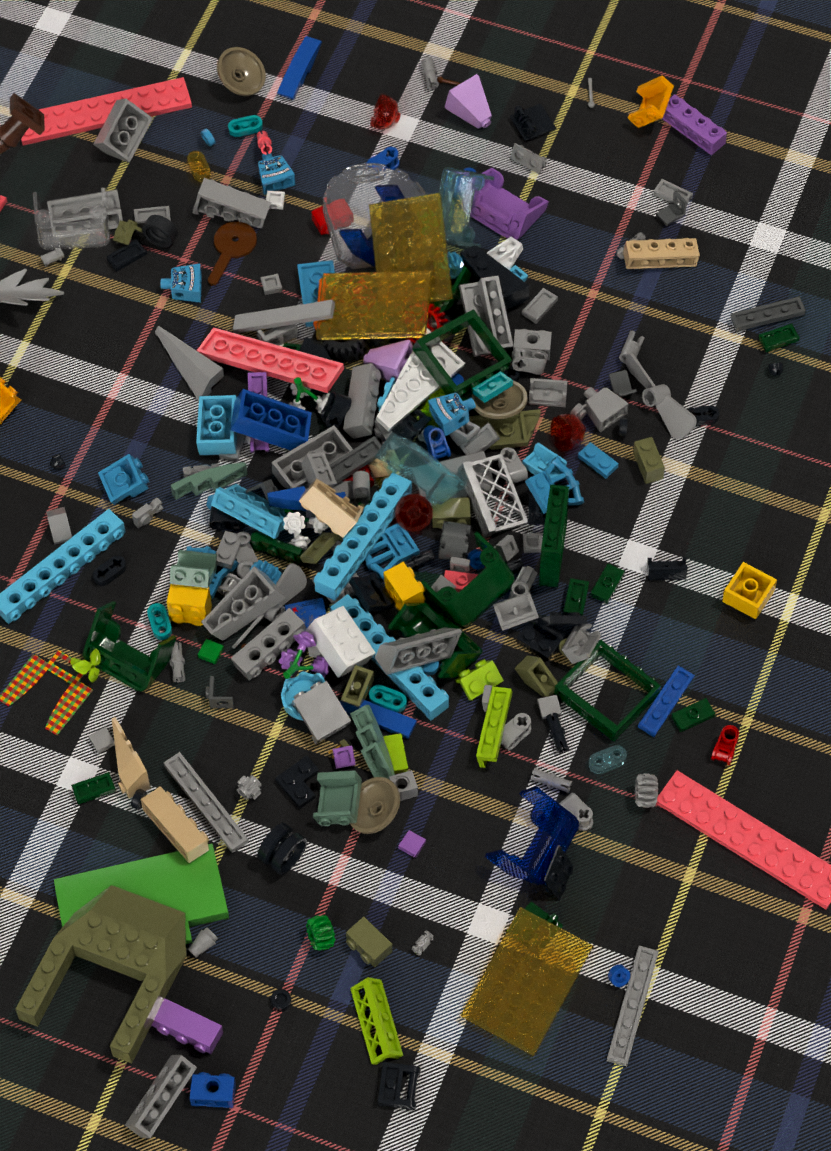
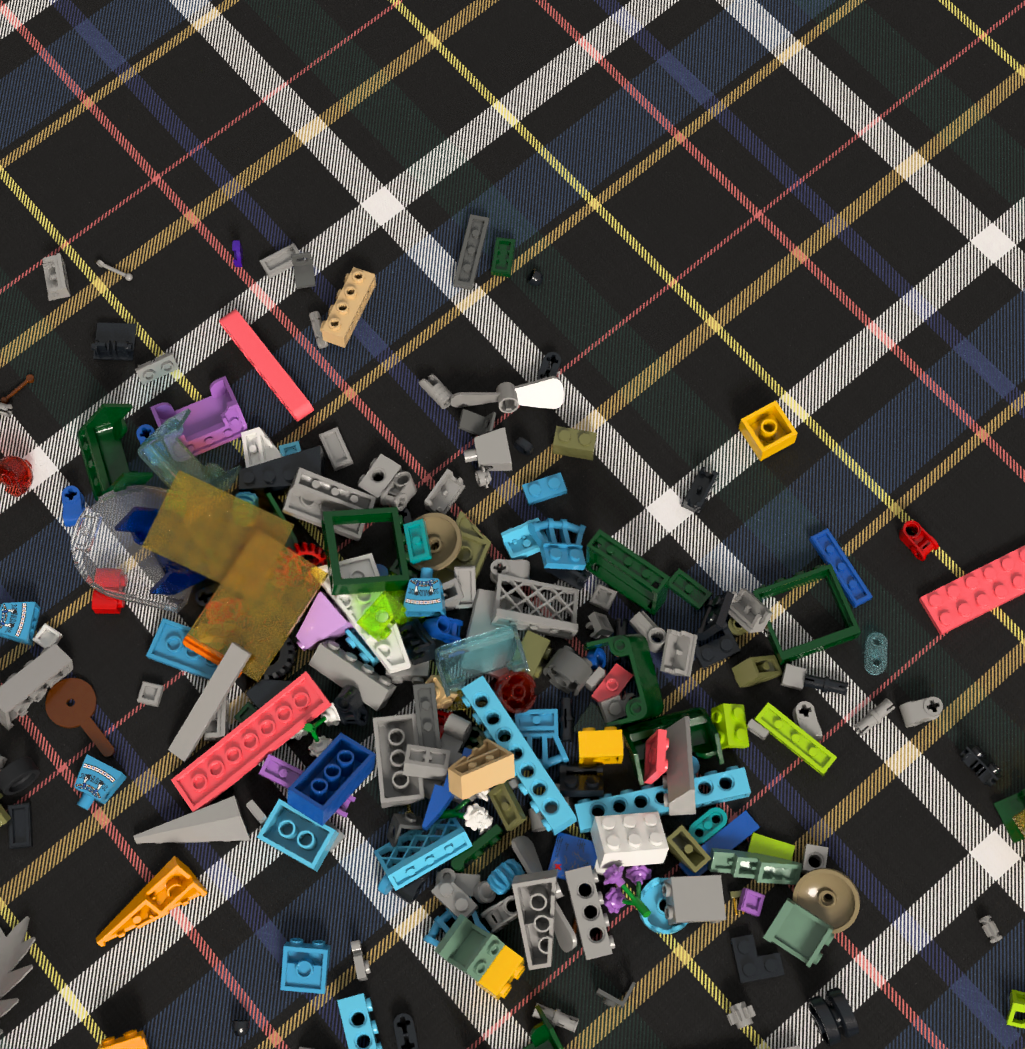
camera: 60 degrees left, 10 degrees up
(133, 368) = (167, 890): none -> light orange wedge
(159, 623) = (497, 1012): teal plate -> none
(187, 471) = (337, 879): light grey axle -> none
(210, 651) = (559, 976): green tile -> none
(213, 477) = (357, 869): sand green slope -> none
(218, 386) = (256, 811): none -> light grey tile
(320, 932) = (941, 1024): green gear -> none
(368, 942) = (969, 981): olive brick -> none
(405, 380) = (383, 604): none -> clear neon green brick
(412, 843) = (878, 884): medium lavender tile -> none
(420, 623) = (655, 754): none -> coral plate
(446, 152) = (104, 452): none -> dark green windscreen
(470, 103) = (59, 386): lavender slope -> none
(556, 828) = (946, 759): clear blue windscreen -> none
(559, 60) = (56, 277): none -> light grey hinge
(568, 431) = (502, 499): clear red cylinder -> none
(577, 225) = (266, 365): none -> coral beam
(607, 583) = (686, 552): dark green plate -> none
(646, 790) = (933, 636): light grey gear -> none
(654, 103) = (170, 220): light orange panel -> none
(659, 162) = (238, 253): none -> dark purple tile
(693, 715) = (867, 551): dark green plate -> none
(694, 125) = (215, 199): medium lavender brick -> none

